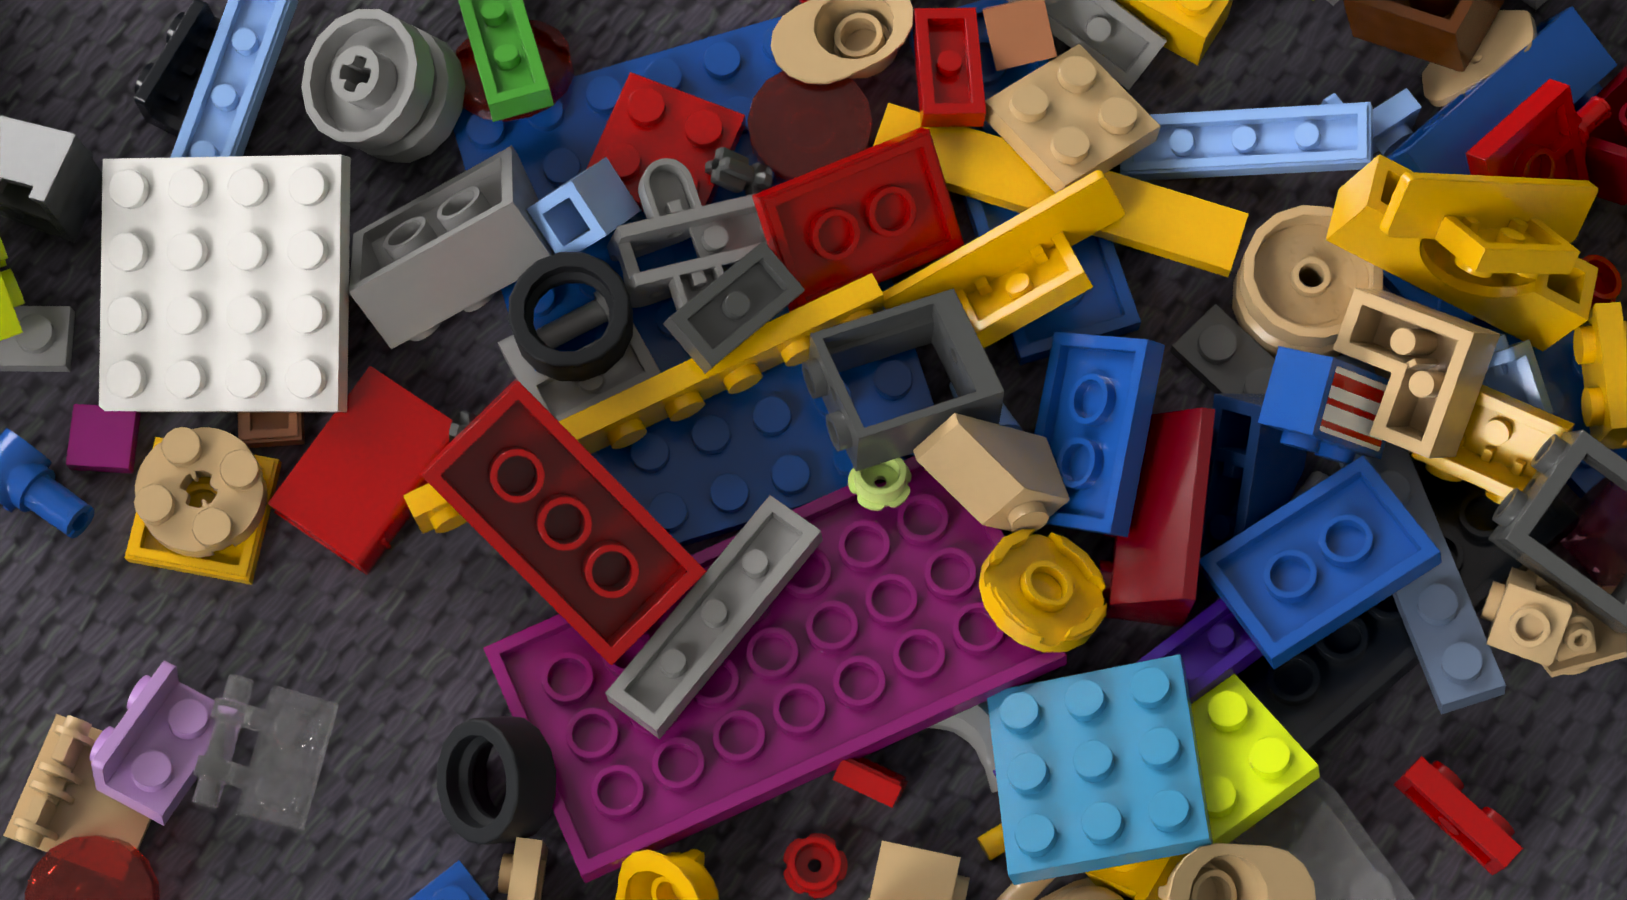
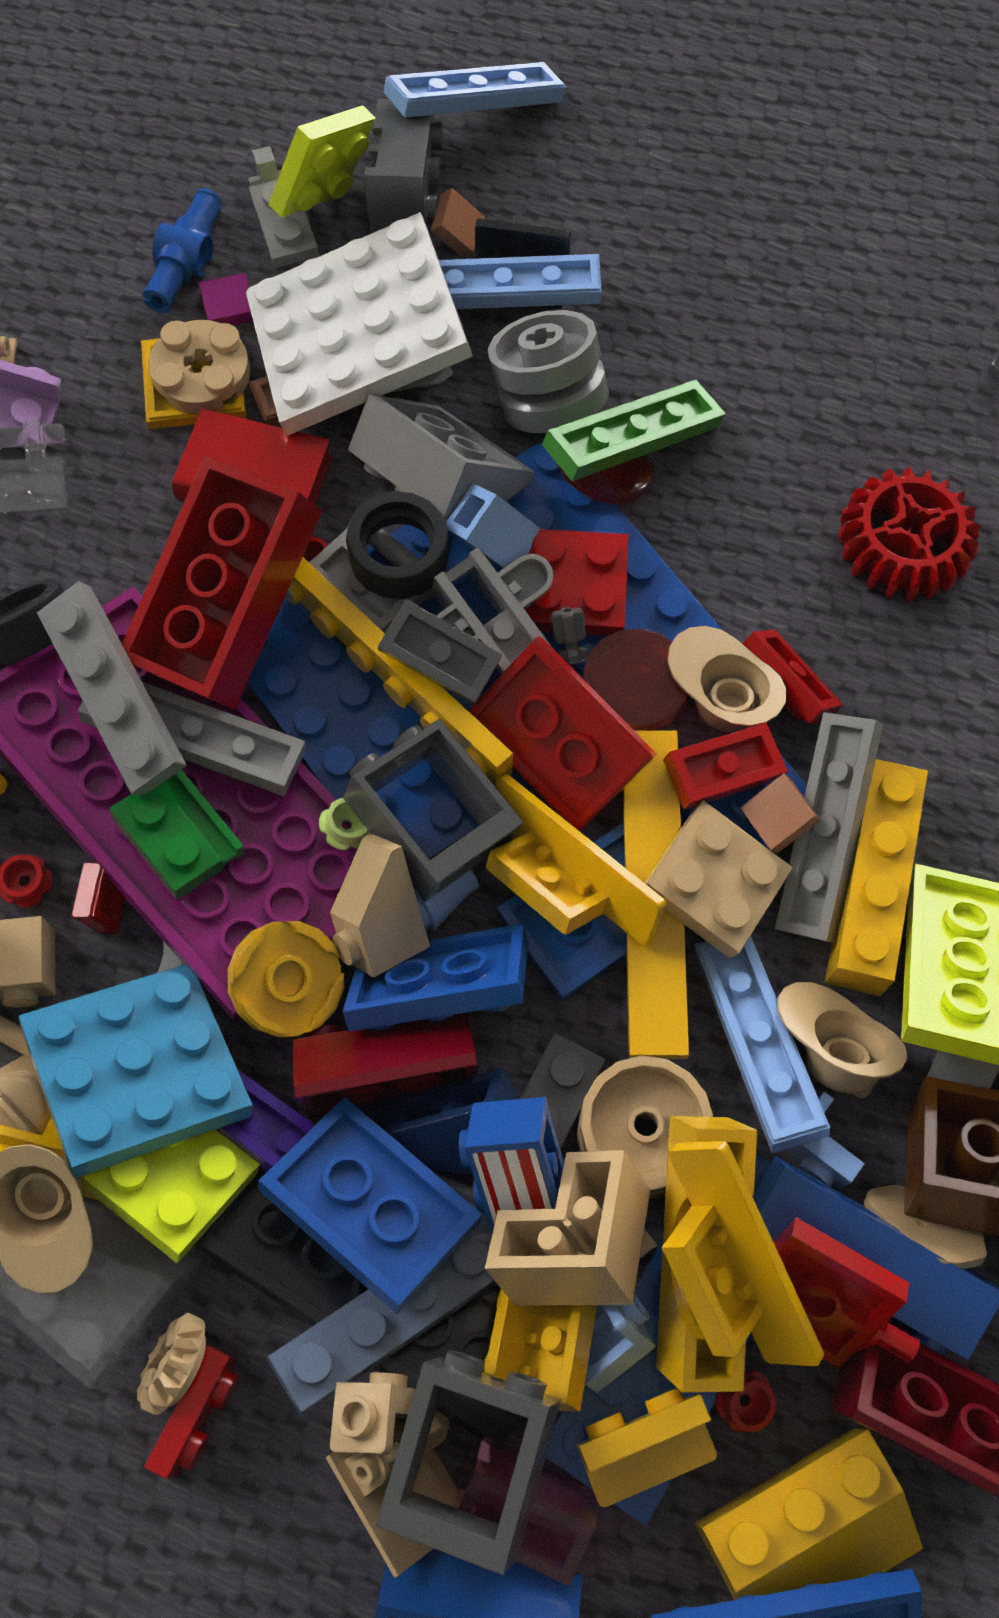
camera: 70 degrees right, 5 degrees down
(107, 128) = (456, 223): none -> nougat tile
(650, 679) = (111, 689): none -> light grey plate
(834, 663) = (177, 833): none -> green plate
(1273, 66) = (841, 1041): none -> tan piece
(1422, 809) = (172, 1364): none -> tan gear

